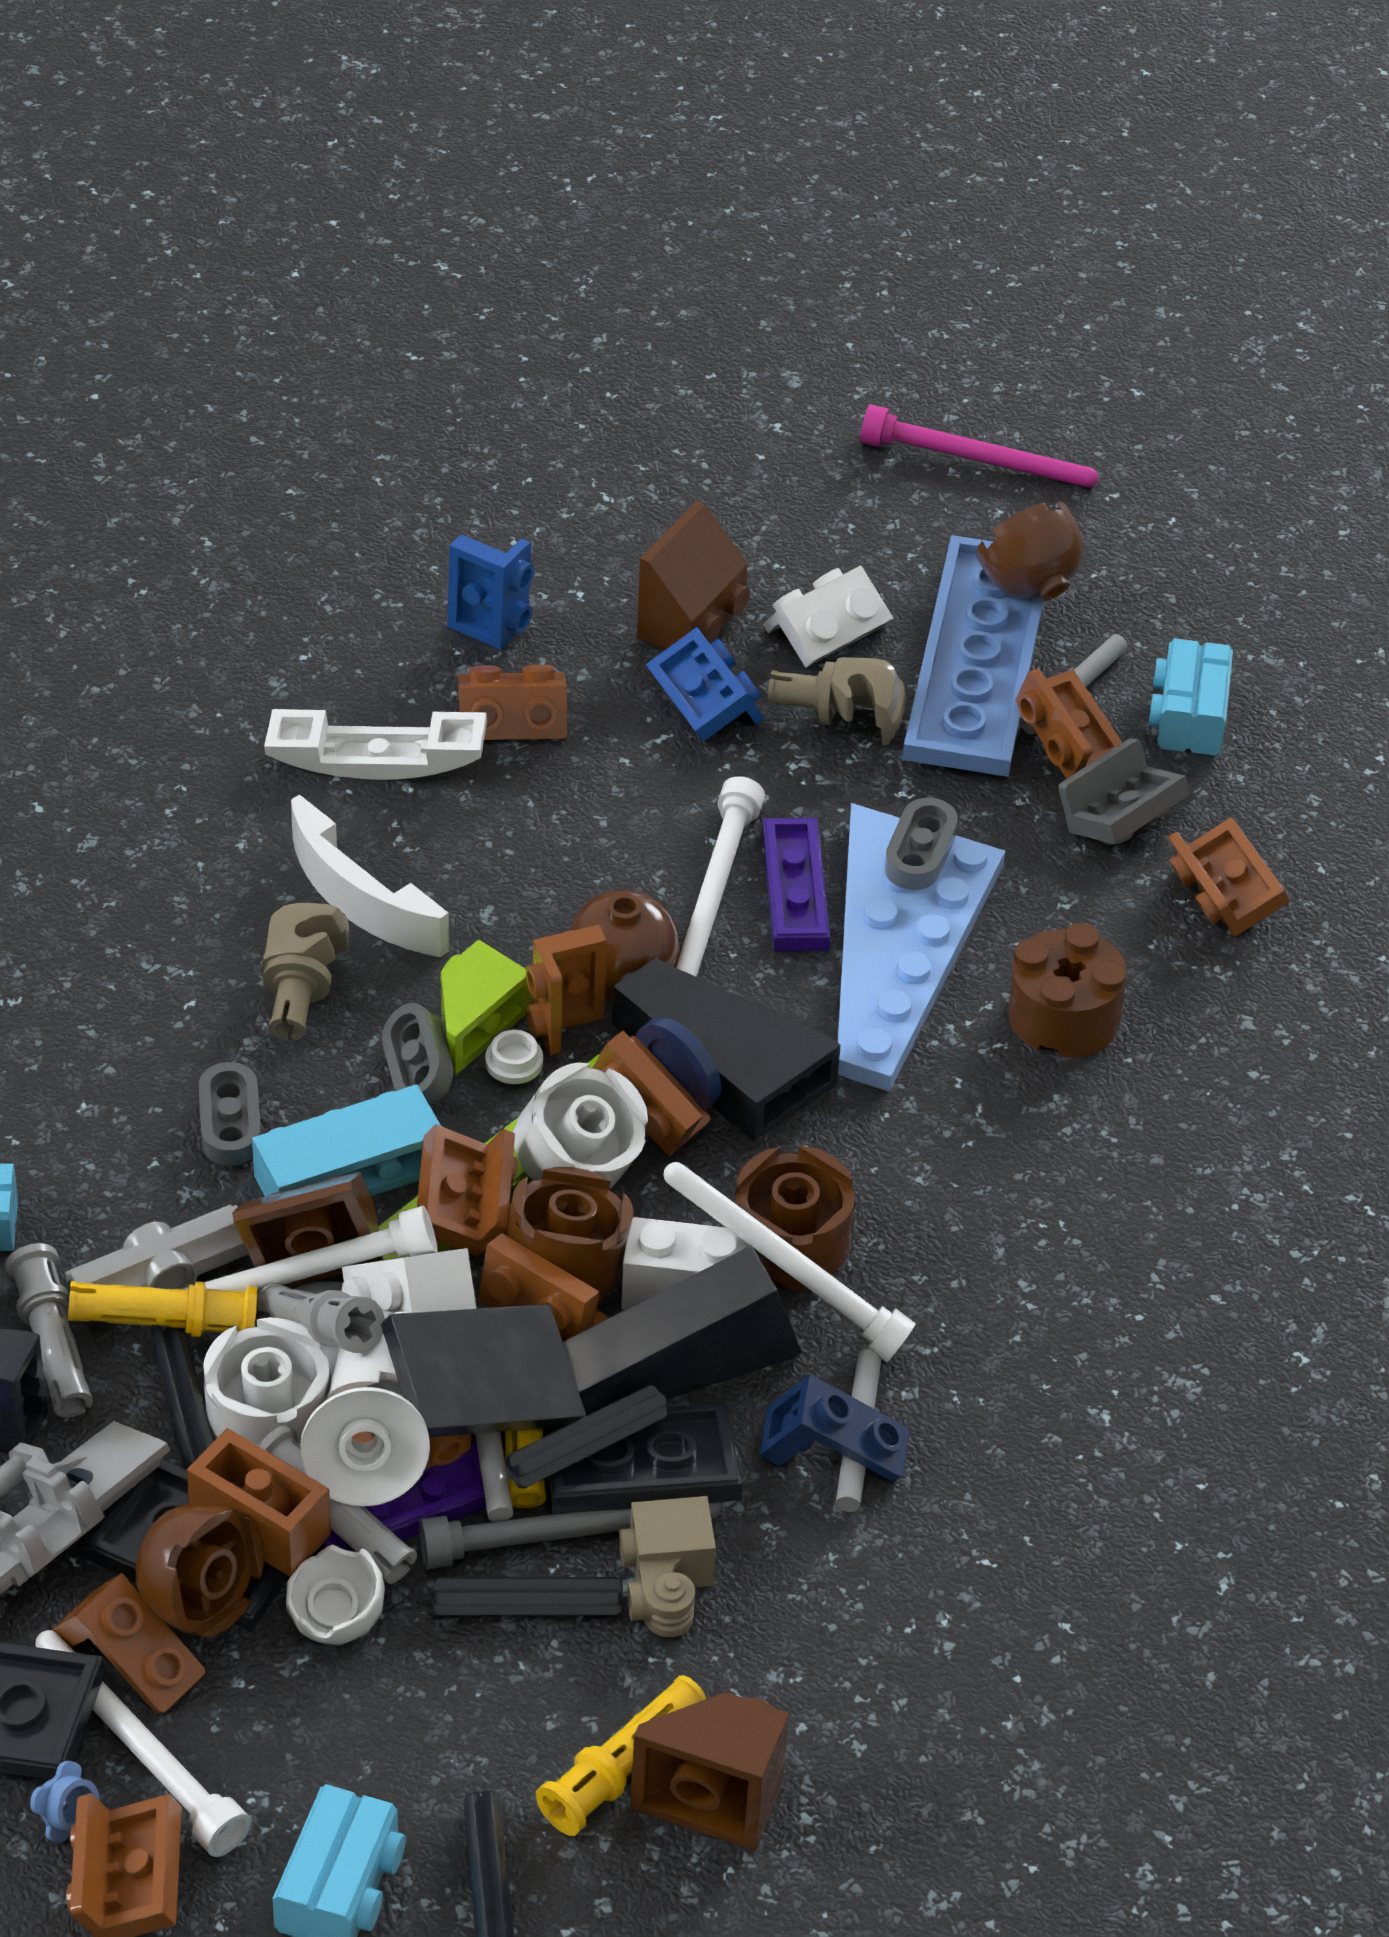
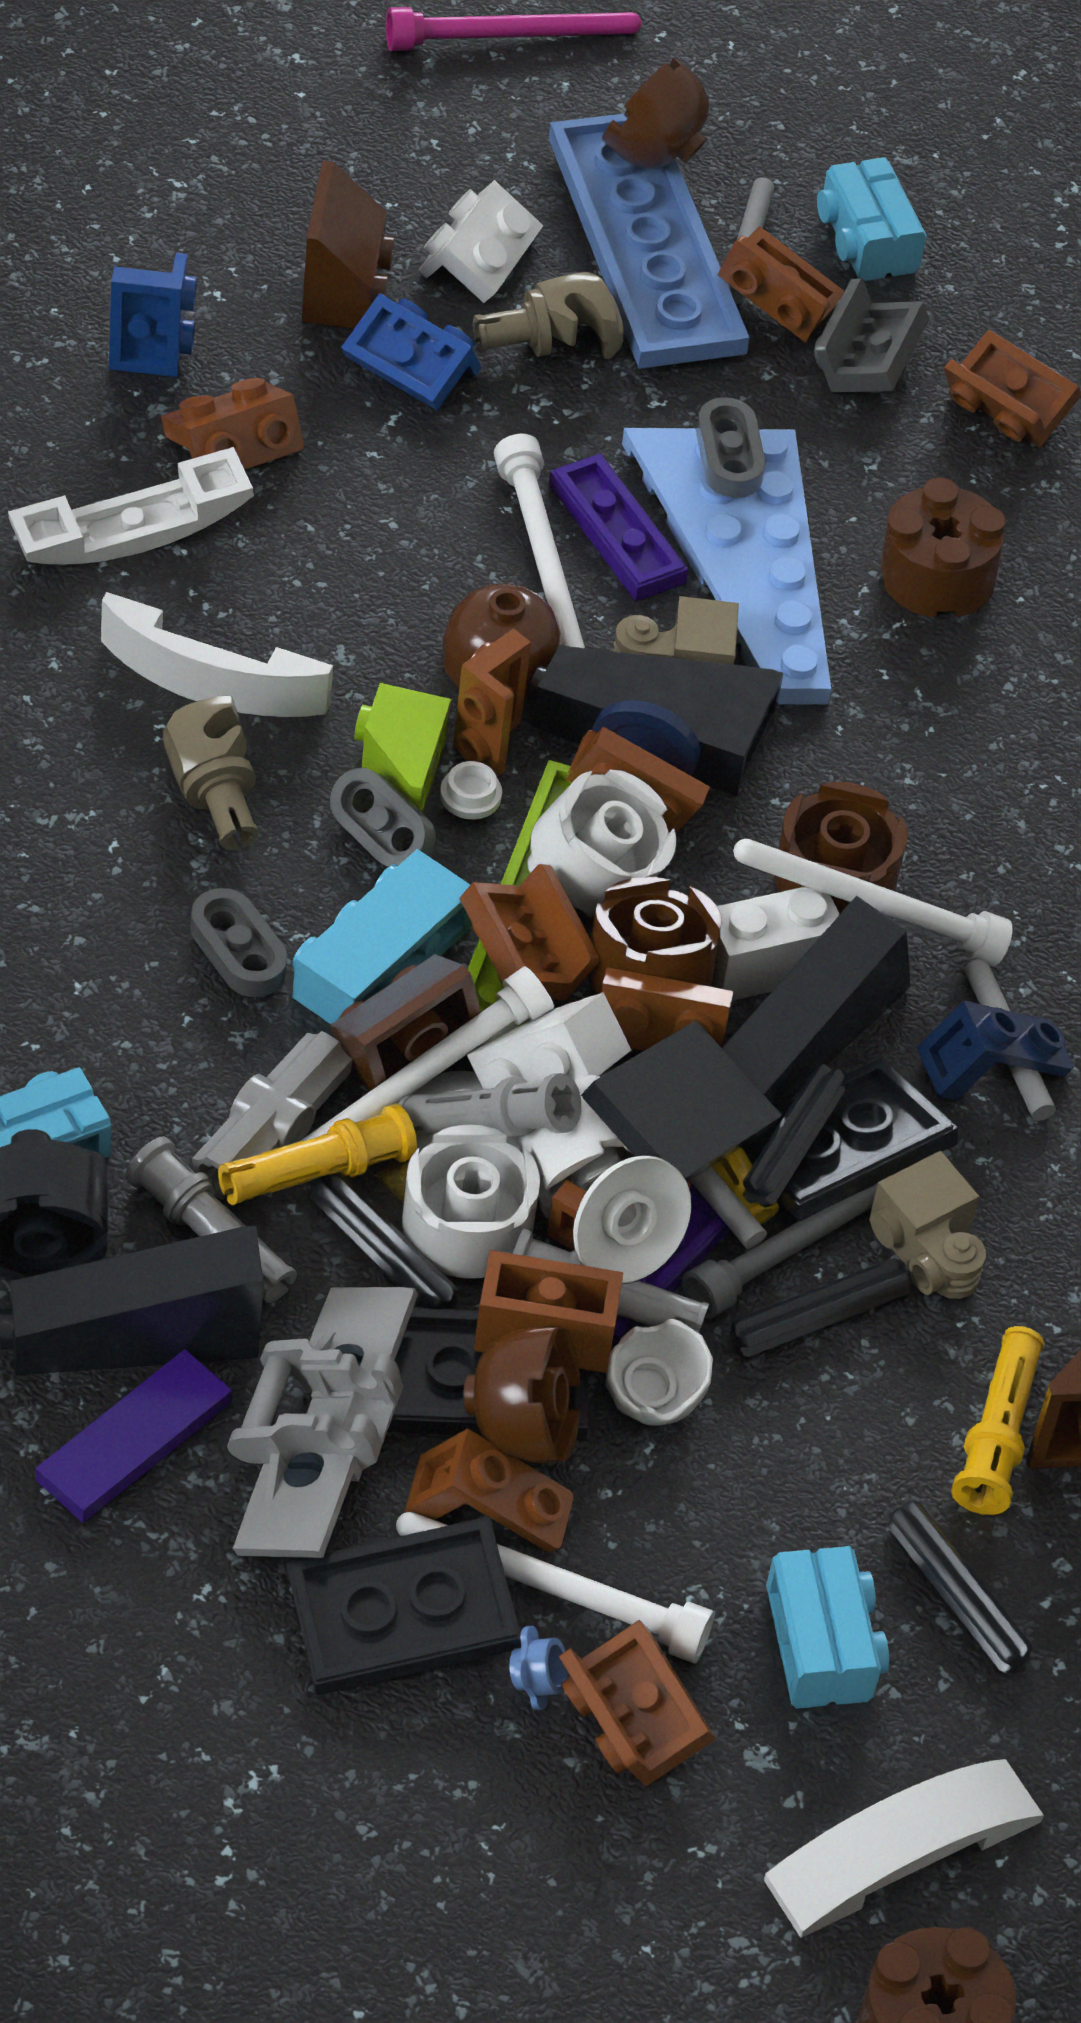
camera: 30 degrees left, 5 degrees up
(795, 990) = (701, 632): none -> dark tan brick

